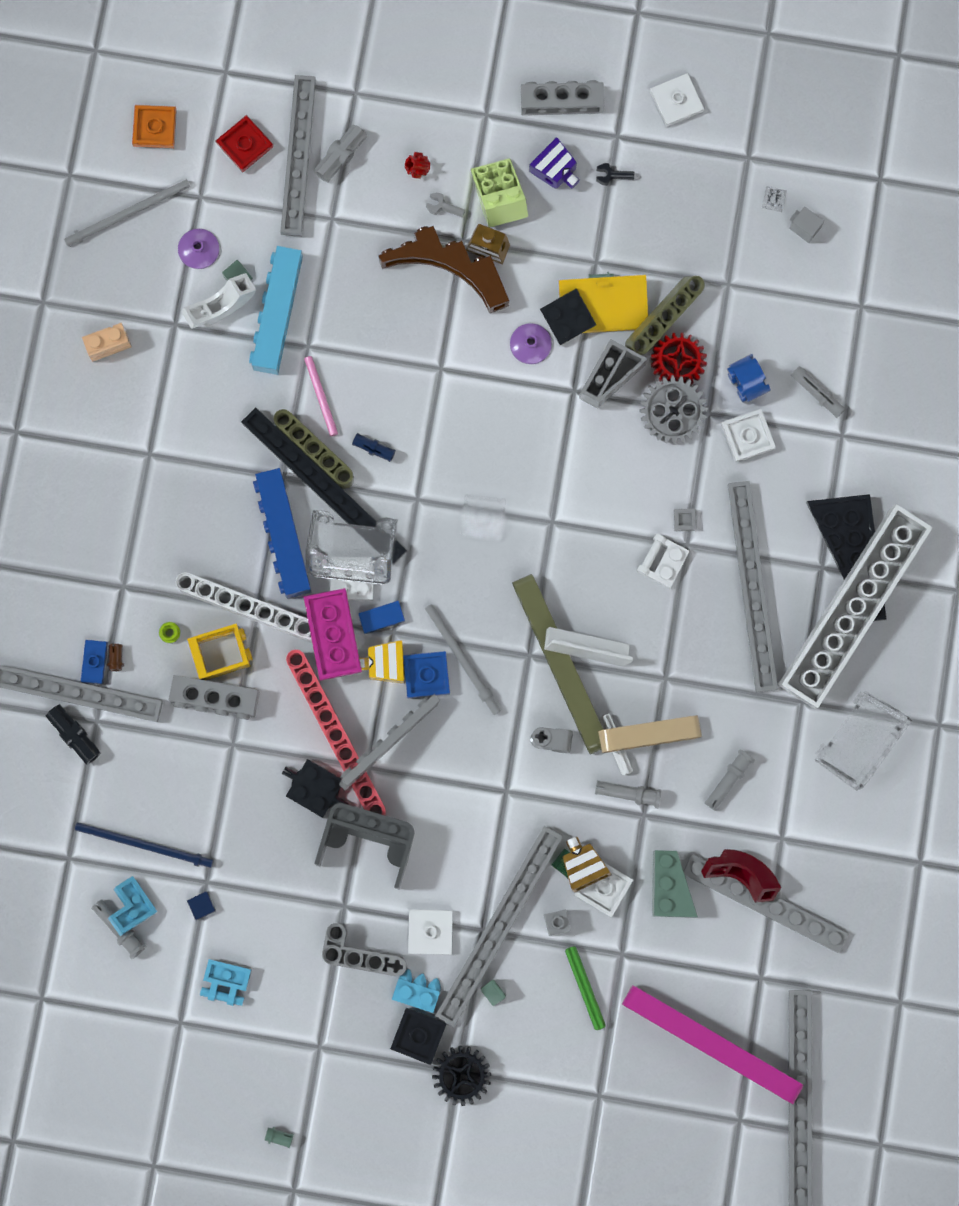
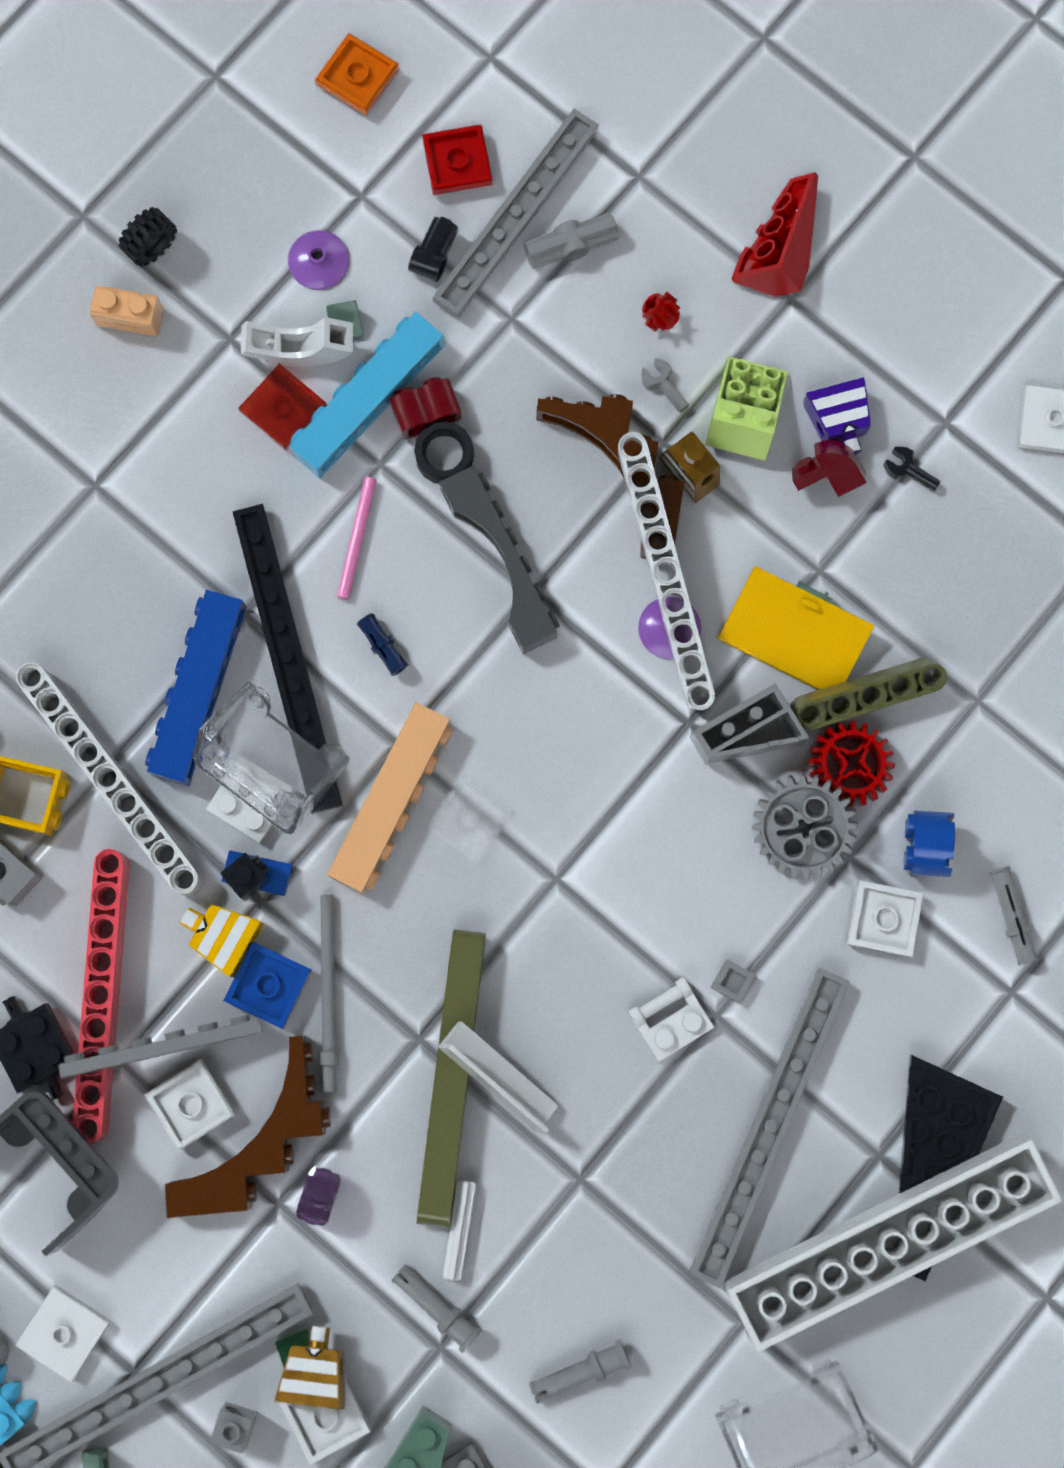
camera: 30 degrees right, 0 degrees up
(80, 235) = (179, 158): light grey bar -> none
(93, 292) = (147, 236): none -> black tyre
(231, 345) = (281, 406): none -> clear red plate
(264, 208) = (431, 256): none -> black piece
(310, 439) = (296, 588): olive beam -> none
(315, 298) = (424, 405): none -> dark red brick
(332, 634) = (174, 860): dark pink tile -> none
(341, 302) = (438, 430): none -> black tyre
(375, 338) = (470, 503): none -> dark grey arch
(378, 619) = (246, 875): none -> black brick
(423, 766) = (190, 1104): none -> white plate
(431, 530) = (390, 798): none -> light nougat brick
(465, 91) = (783, 247): none -> red wedge
(486, 737) = (229, 1185): none -> reddish brown arch
(507, 301) = (666, 555): none -> white beam
(527, 770) = (318, 1196): none -> clear purple gear
(554, 106) = (910, 347): light grey brick -> none
(556, 739) = (384, 1177): light grey piece -> none
(568, 195) = (832, 461): none -> dark red brick
(568, 316) = (738, 621): black plate -> none
(649, 734) = (510, 1246): tan beam -> none

